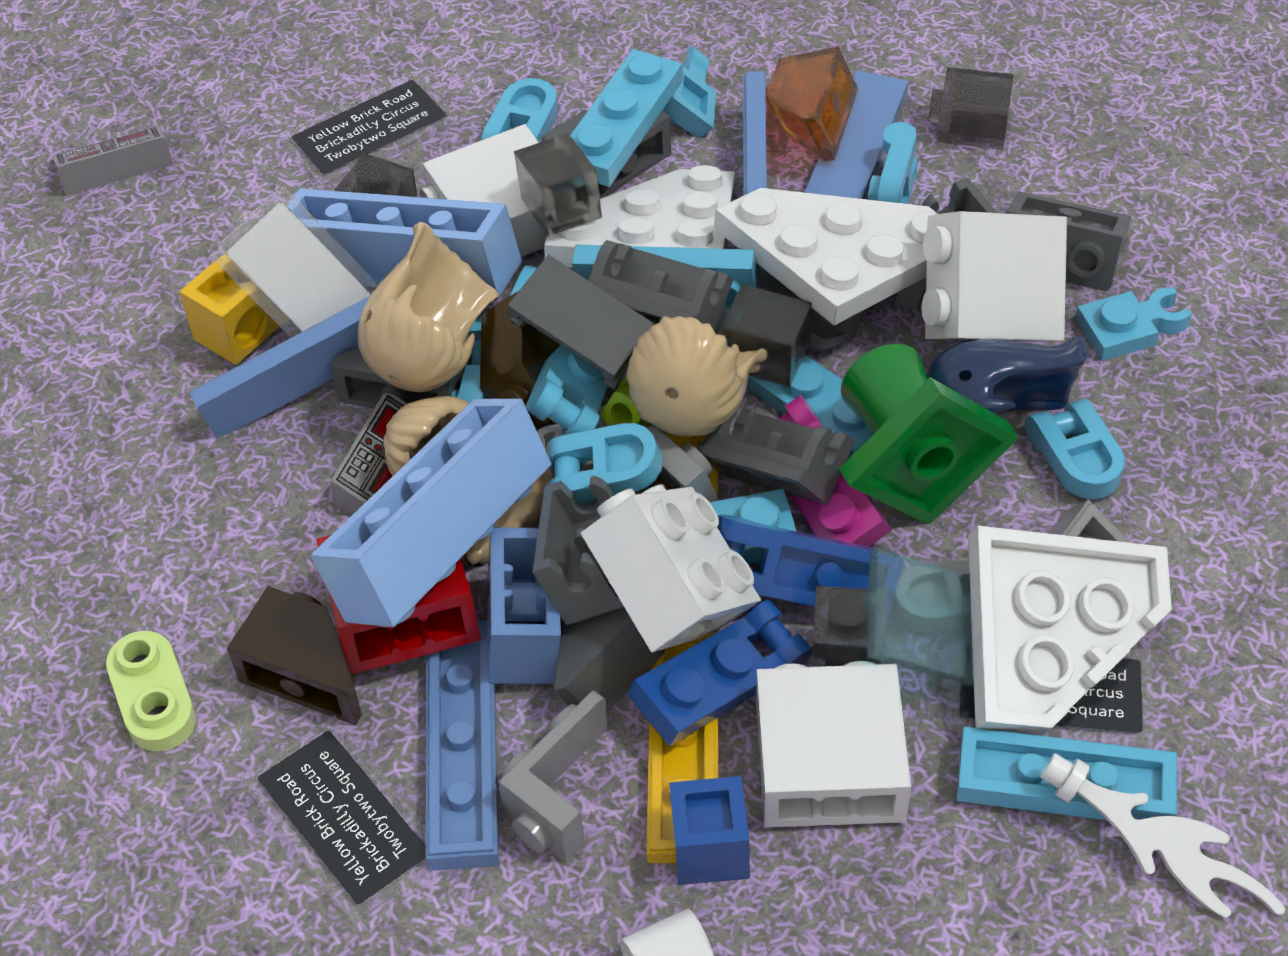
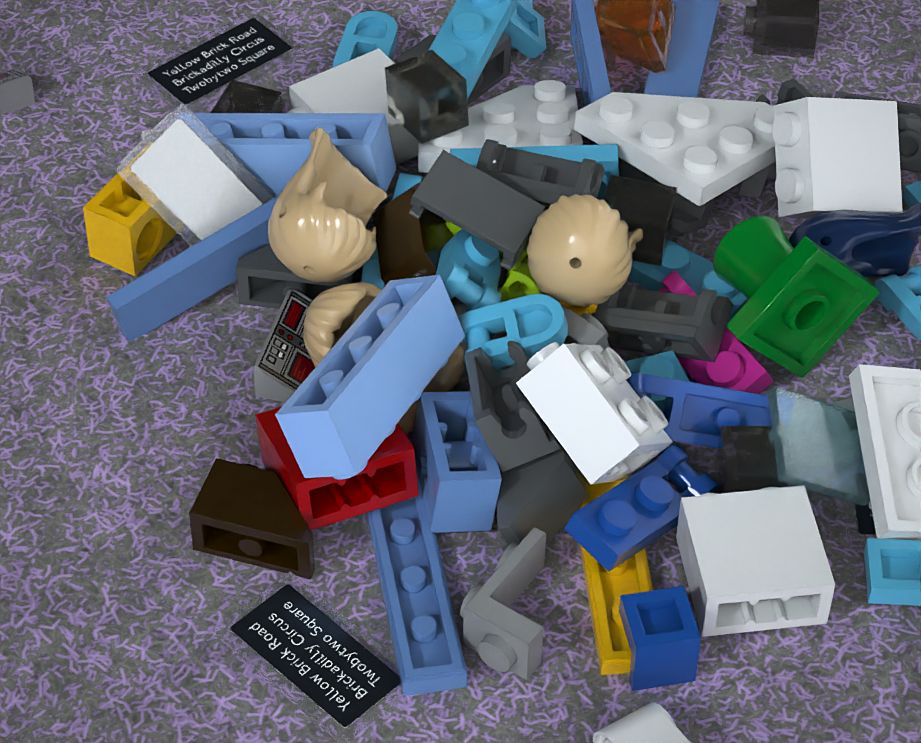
camera: 10 degrees left, 5 degrees down
(148, 685) = (111, 555): yellowish green plate -> none
(899, 165) = (724, 73): medium azure plate -> none

